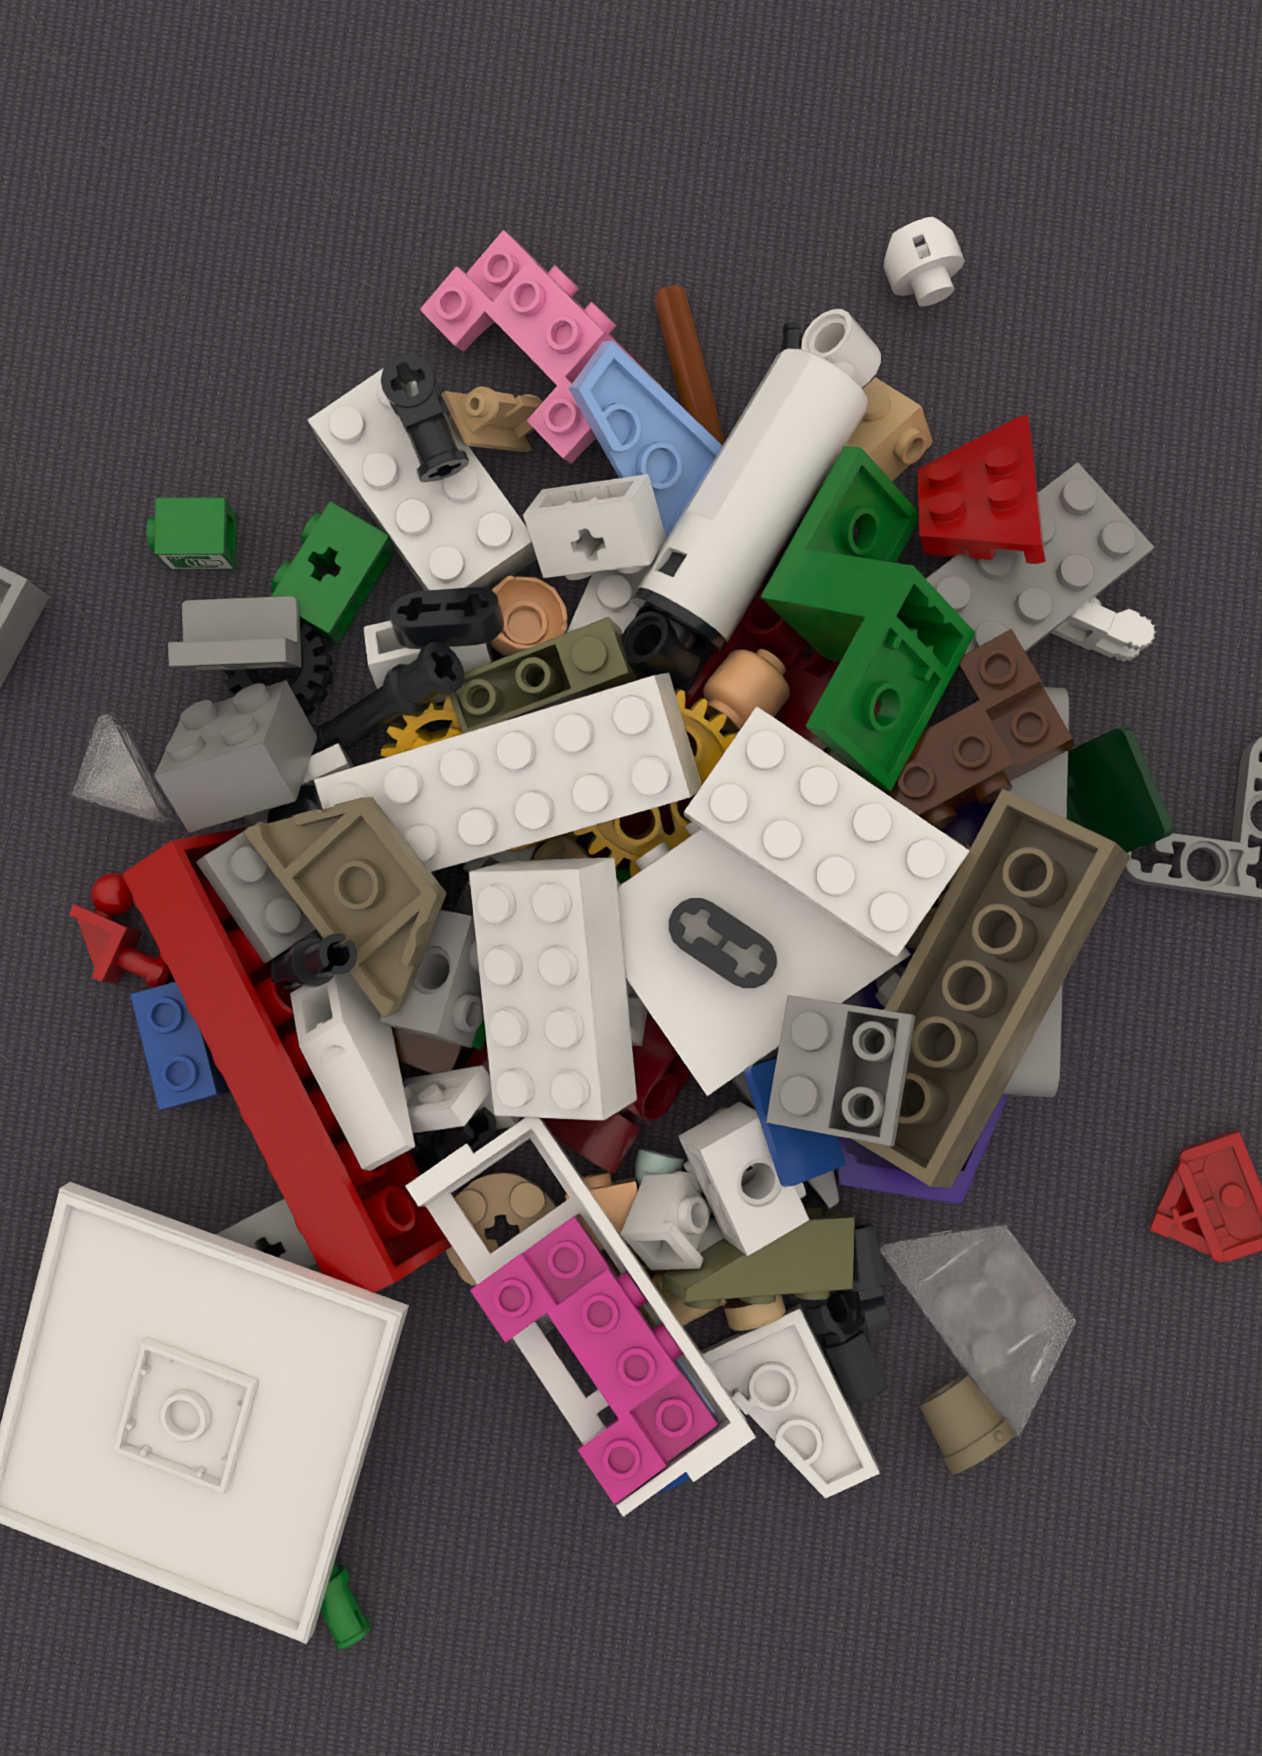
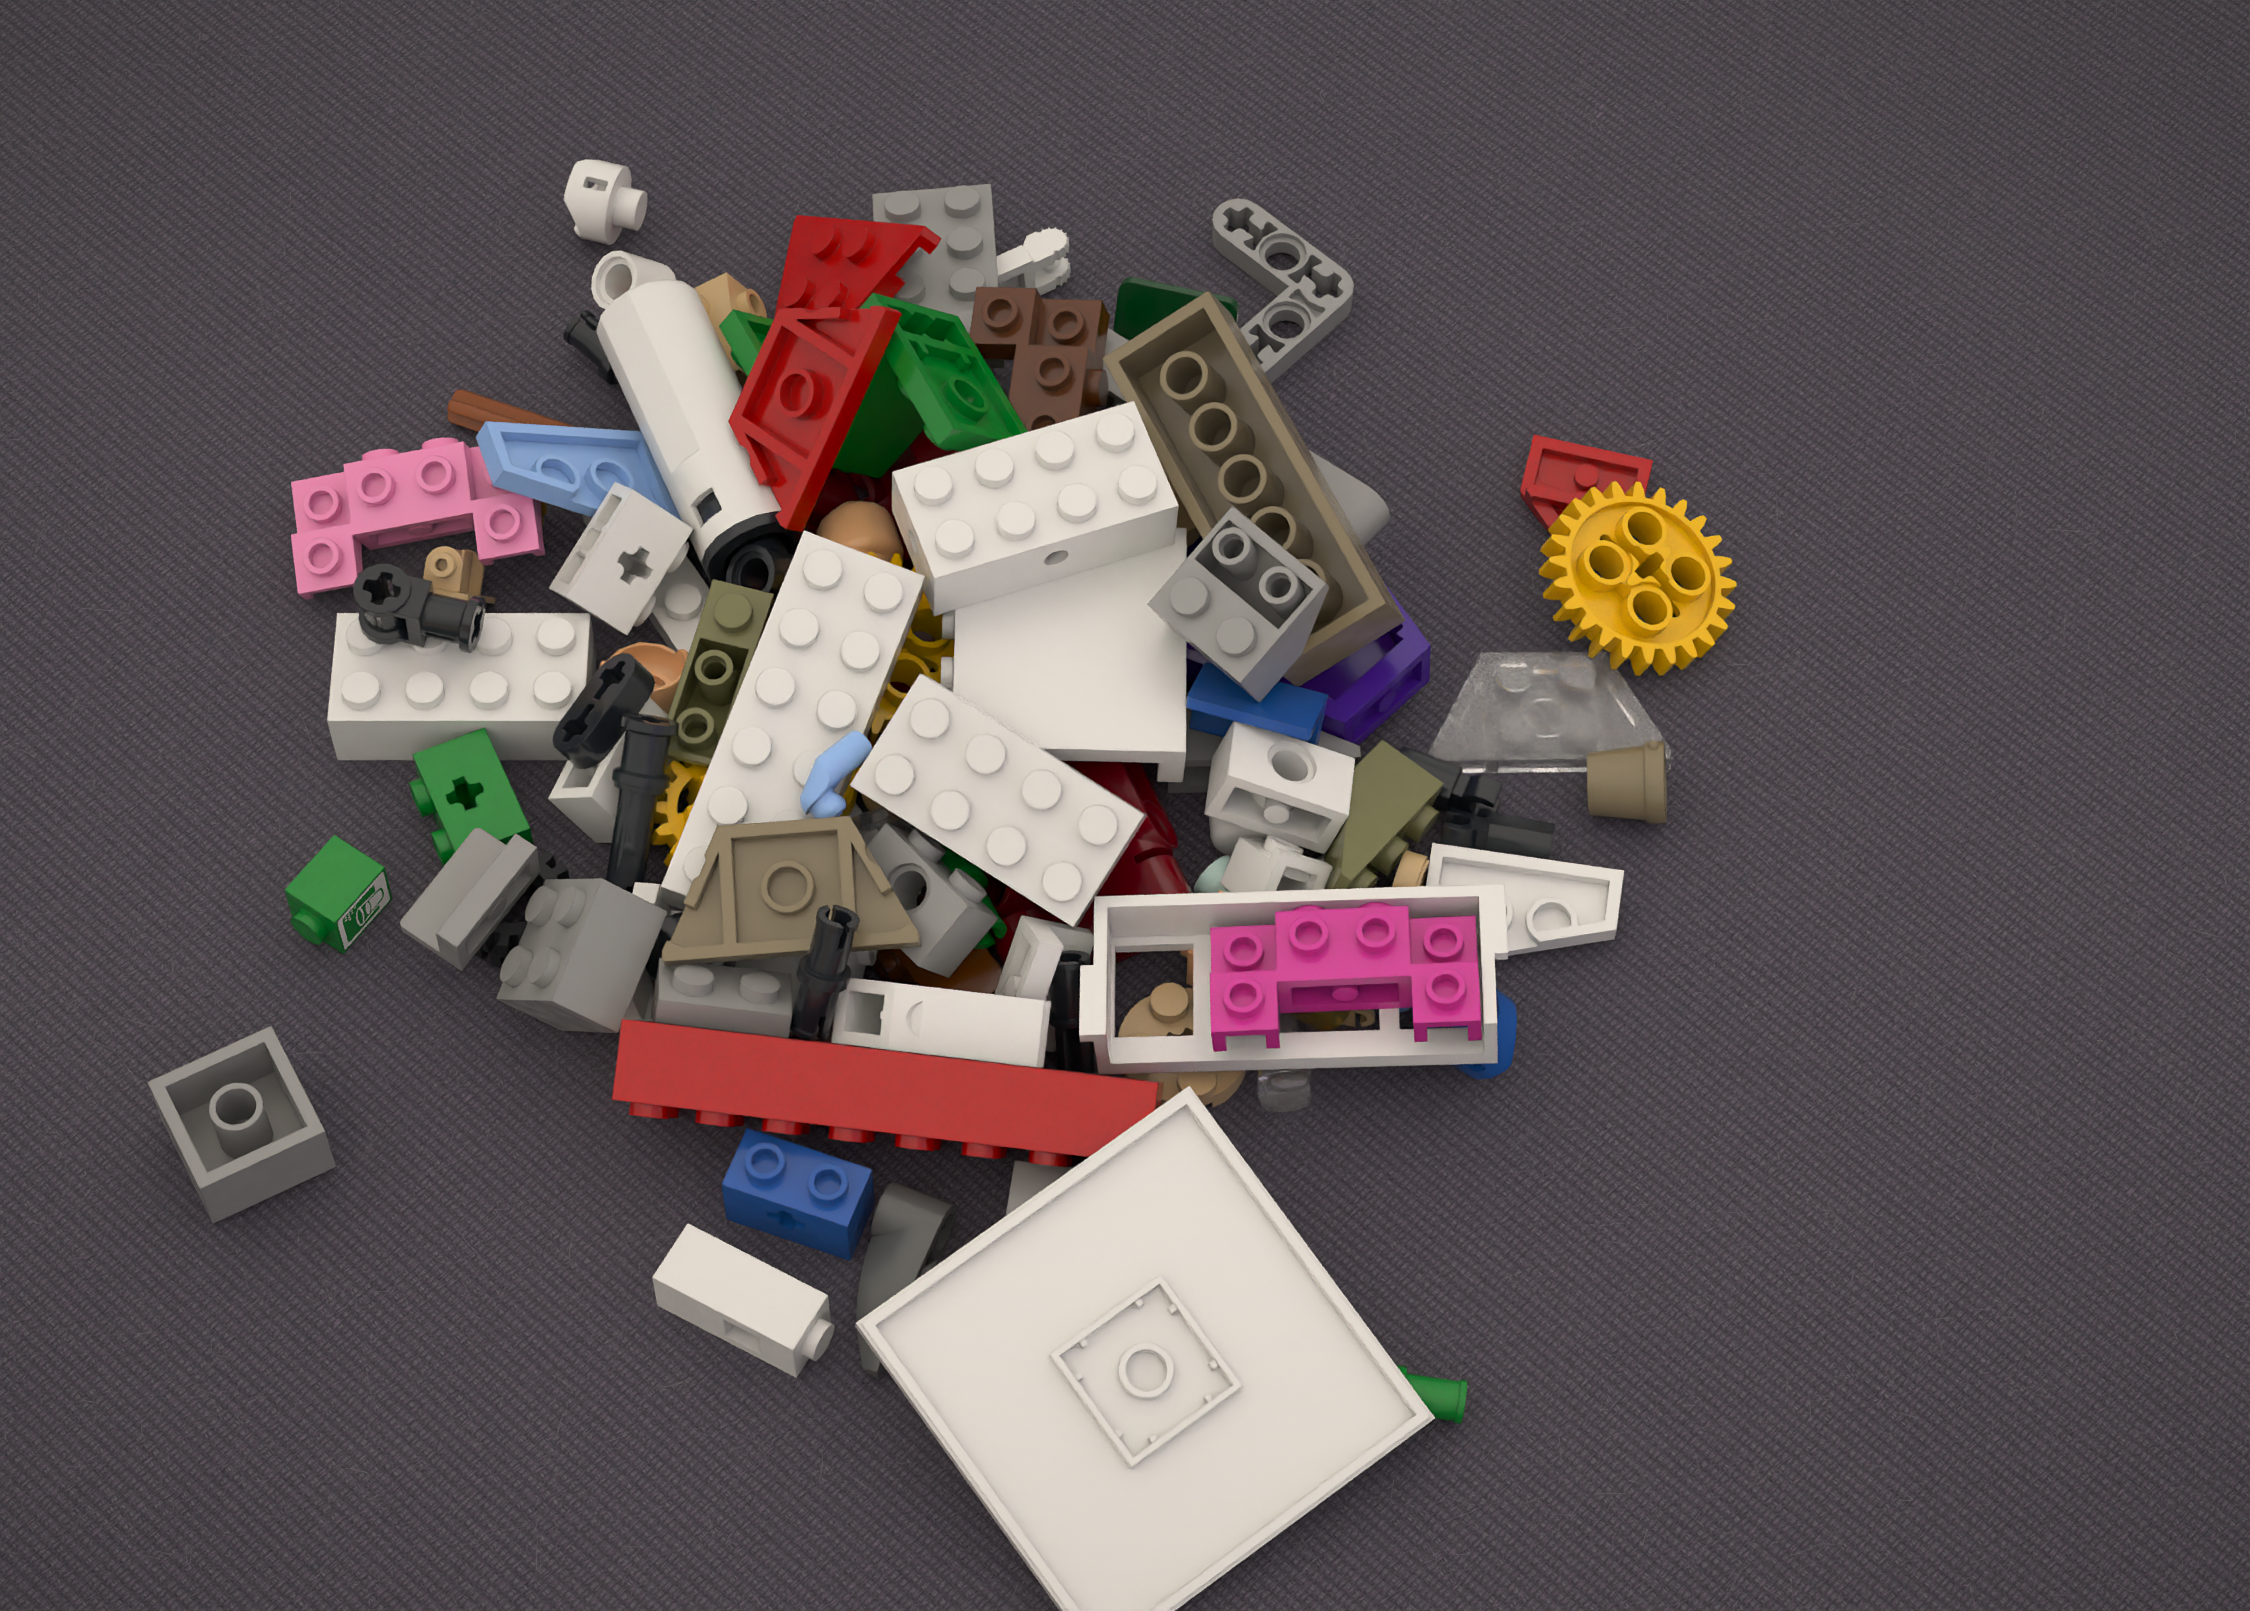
camera: 55 degrees left, 25 degrees down
(75, 1066) = (743, 1301): none -> white brick
(114, 942) = (645, 1192): red piece -> none
(117, 776) = (511, 1096): clear slope -> none
(179, 1151) = (905, 1243): none -> dark grey piece
(471, 846) = (827, 772): none -> light blue arm
(731, 930) = (1064, 649): black beam -> none
(799, 576) = (806, 398): none -> red wing
(1158, 1309) = (1637, 578): none -> yellow gear

